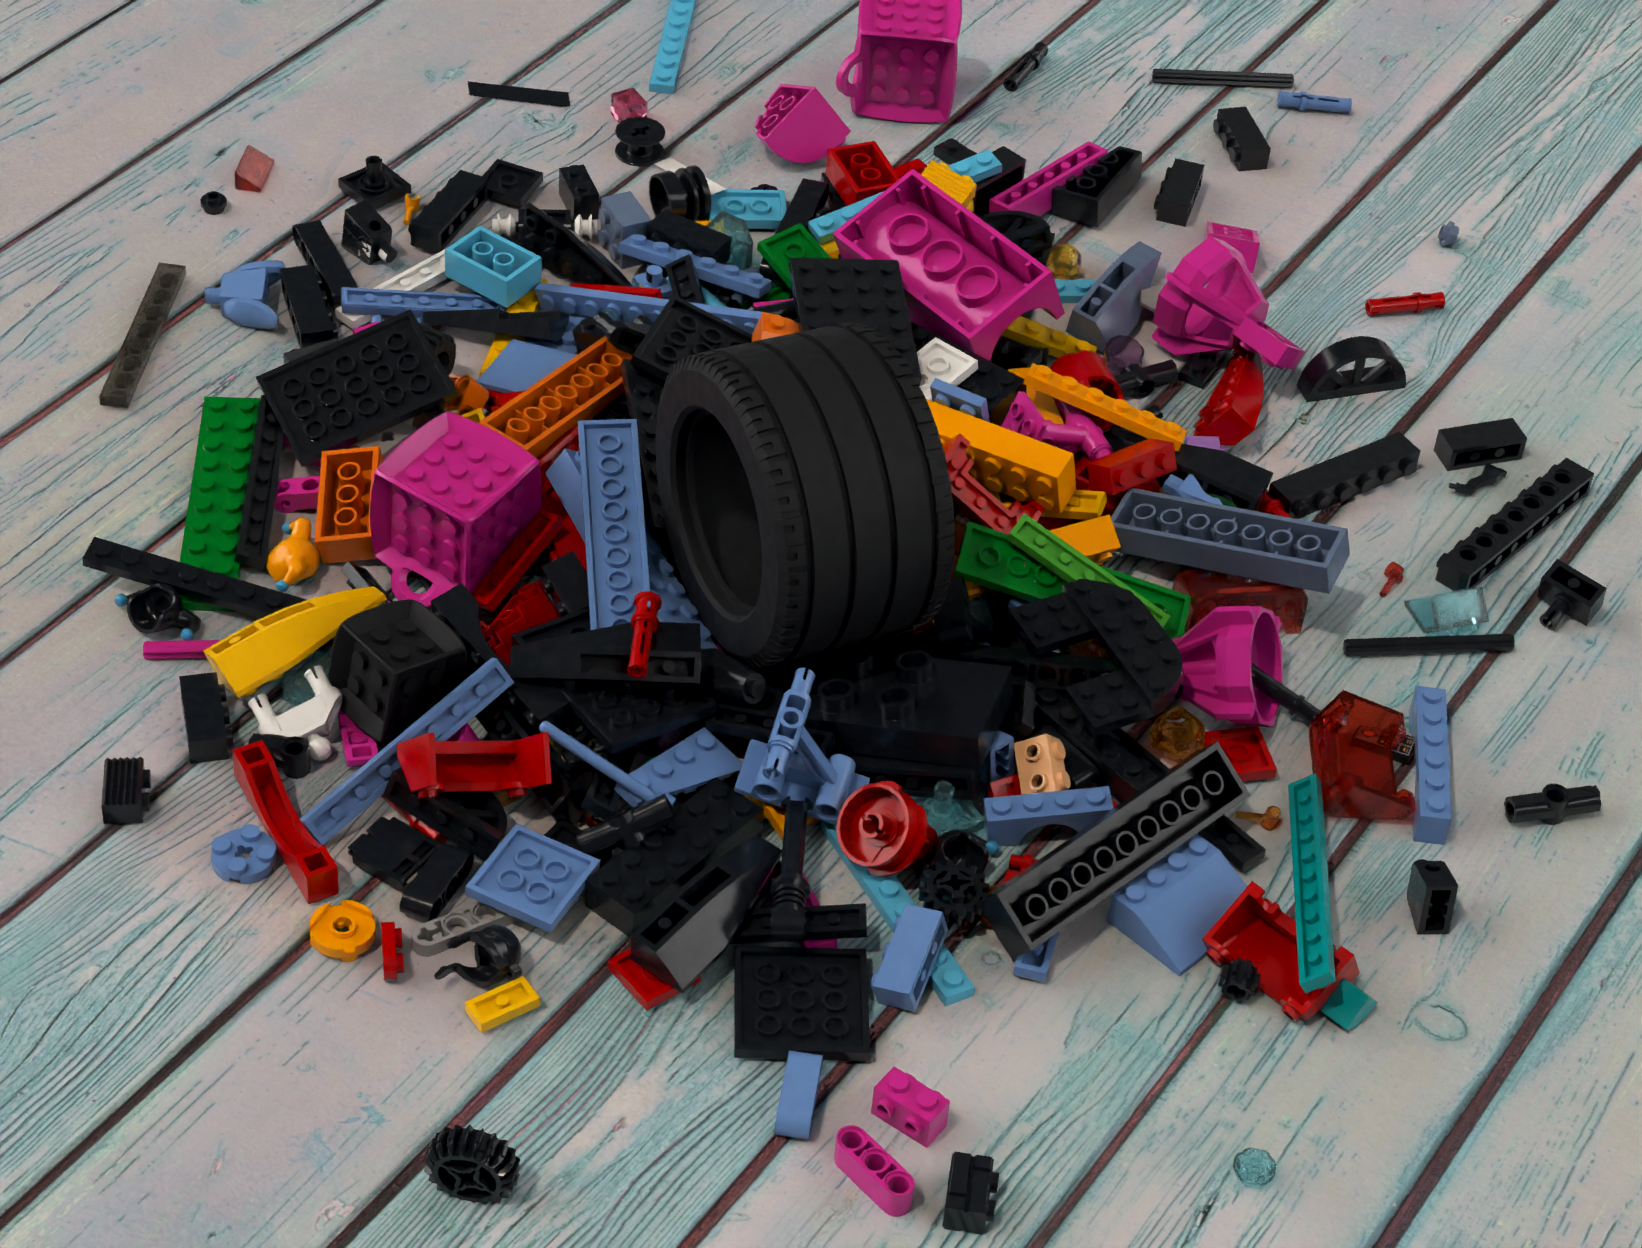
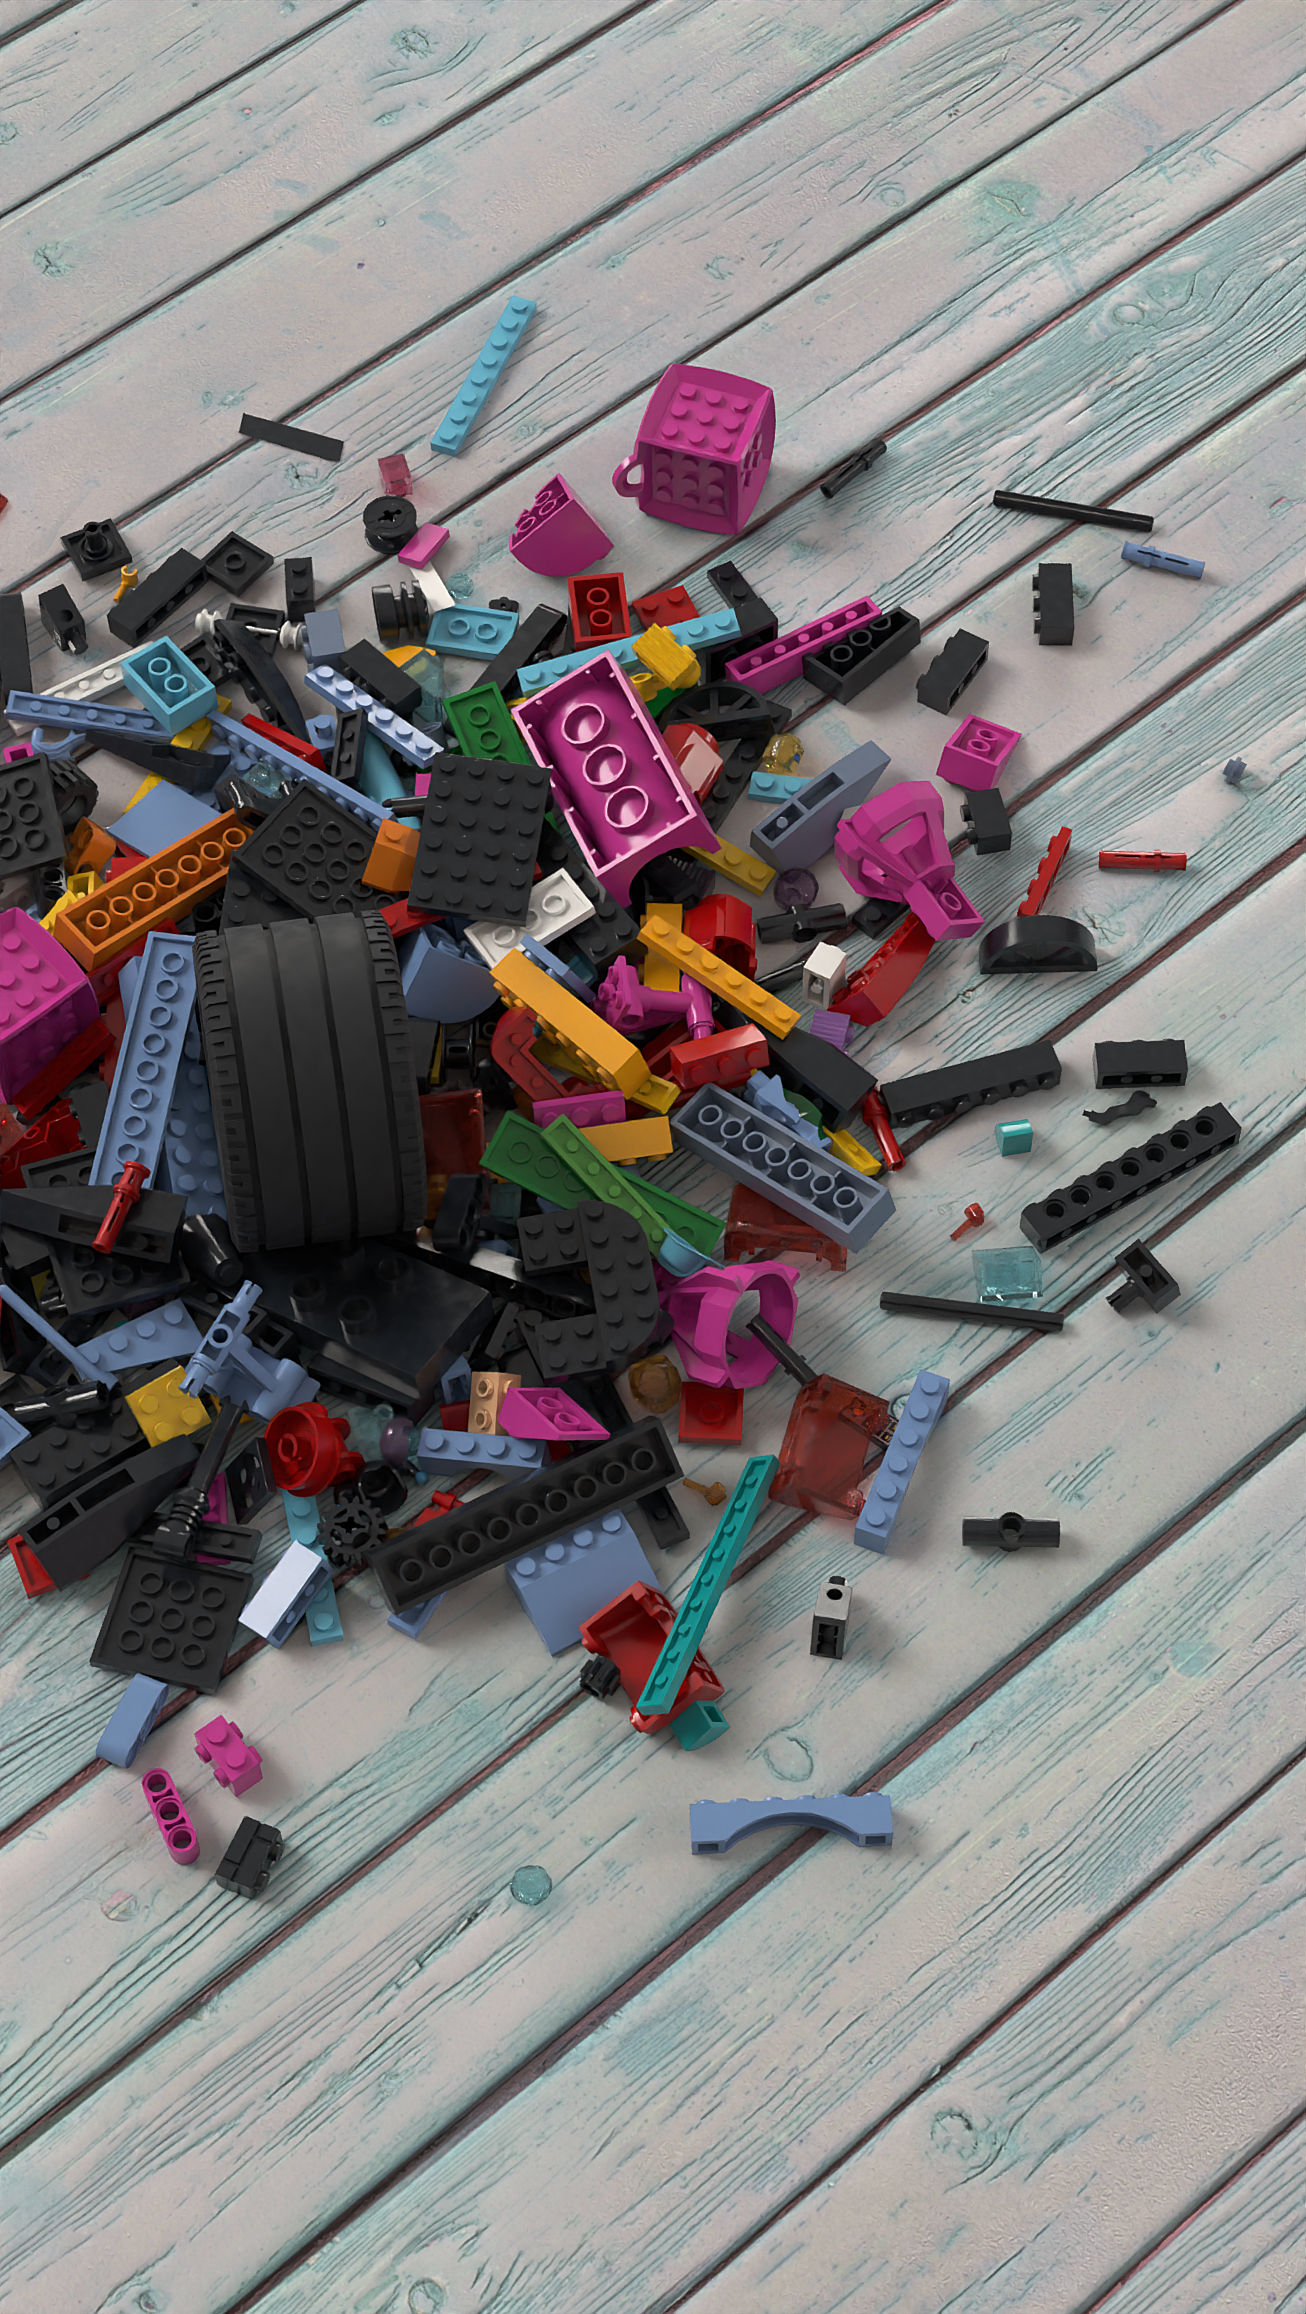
camera: 20 degrees right, 15 degrees up
(675, 154) = (423, 545): none -> dark pink tile
(721, 176) = (460, 585): none -> clear light blue plate
(734, 813) = (166, 1410): none -> yellow plate
(822, 852) = (264, 1486): none -> black piece
(966, 810) = (395, 1440): none -> clear purple hair
(1048, 514) = (582, 1110): none -> dark pink plate
(1101, 766) = (548, 1416): none -> dark pink slope
(1175, 615) = (681, 1257): none -> medium azure piece
(1184, 404) = (823, 975): none -> white brick
(1272, 288) = (986, 821): none -> black brick
(1331, 316) = (1048, 871): none -> red plate
(1400, 510) = (1014, 1137): none -> teal brick
(1534, 1055) = (859, 1819): none -> medium blue arch

